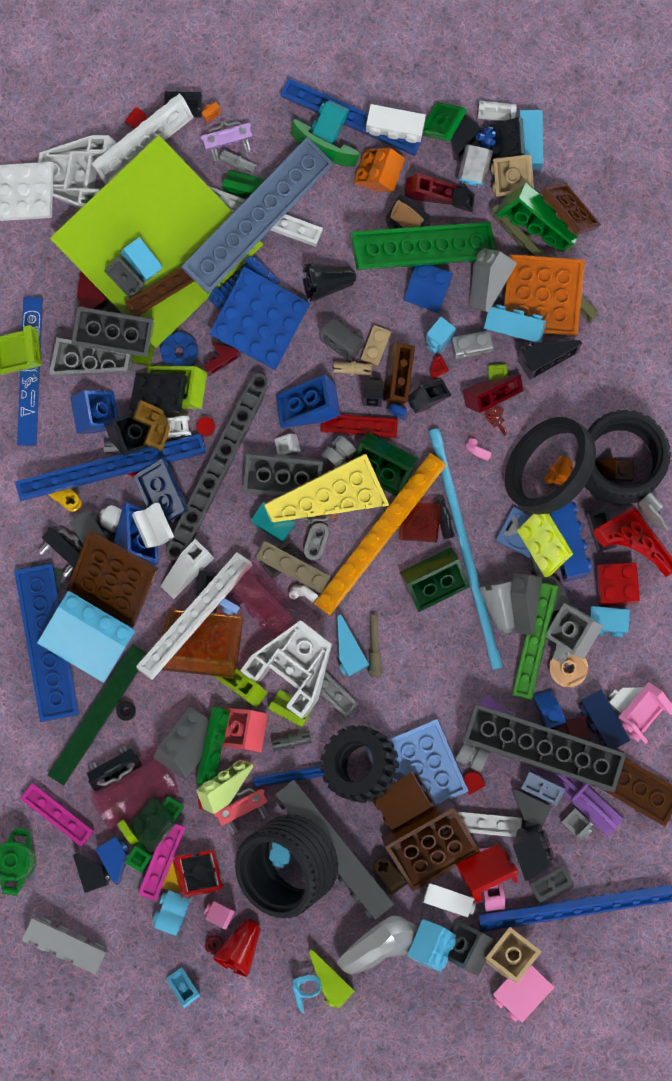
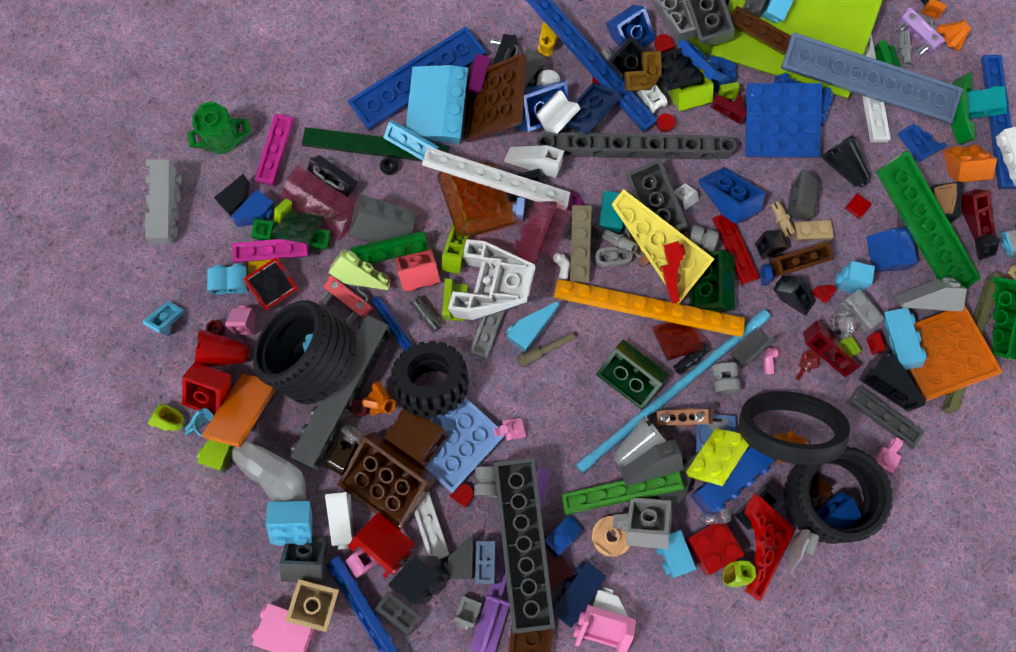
camera: 60 degrees right, 5 degrees down
(73, 582) = (477, 74): none -> magenta slope
(114, 680) = (407, 140): none -> medium azure plate
(123, 387) = (664, 43): none -> red tile
(164, 365) = (699, 61): none -> blue wing
(204, 352) = (729, 90): none -> lime tile
(246, 550) = (574, 199): none -> magenta tile
(247, 110) = (955, 33): none -> orange rock
(274, 973) = (205, 387): none -> red brick
(281, 1023) = (166, 418): none -> lime rock
(306, 529) = (620, 241): none -> light grey axle
(308, 950) = (239, 411): none -> orange tile
(338, 202) = (920, 142): none -> blue wing
(346, 489) = (674, 254): none -> red slope
(352, 835) = (356, 411): none -> dark red plate
(355, 818) = (379, 400): none -> orange rock
(371, 292) = (858, 206): none -> red tile
(378, 854) = (353, 434): none -> clear slope
(436, 711) = (512, 429): none -> bright pink plate
(459, 460) = (750, 348): none -> dark grey panel
(475, 367) = (843, 323): none -> clear head
(483, 500) = (726, 385): none -> light grey wheel
(503, 537) = (701, 416): none -> nougat piece
(506, 348) = (875, 343): none -> red tile
(573, 375) = (885, 417): none -> dark grey tile
(597, 566) = (721, 517): none -> clear arm
(610, 393) = (887, 456): none -> bright pink plate
(636, 463) = (840, 511): none -> blue slope
(650, 575) = (739, 574): none -> lime rock

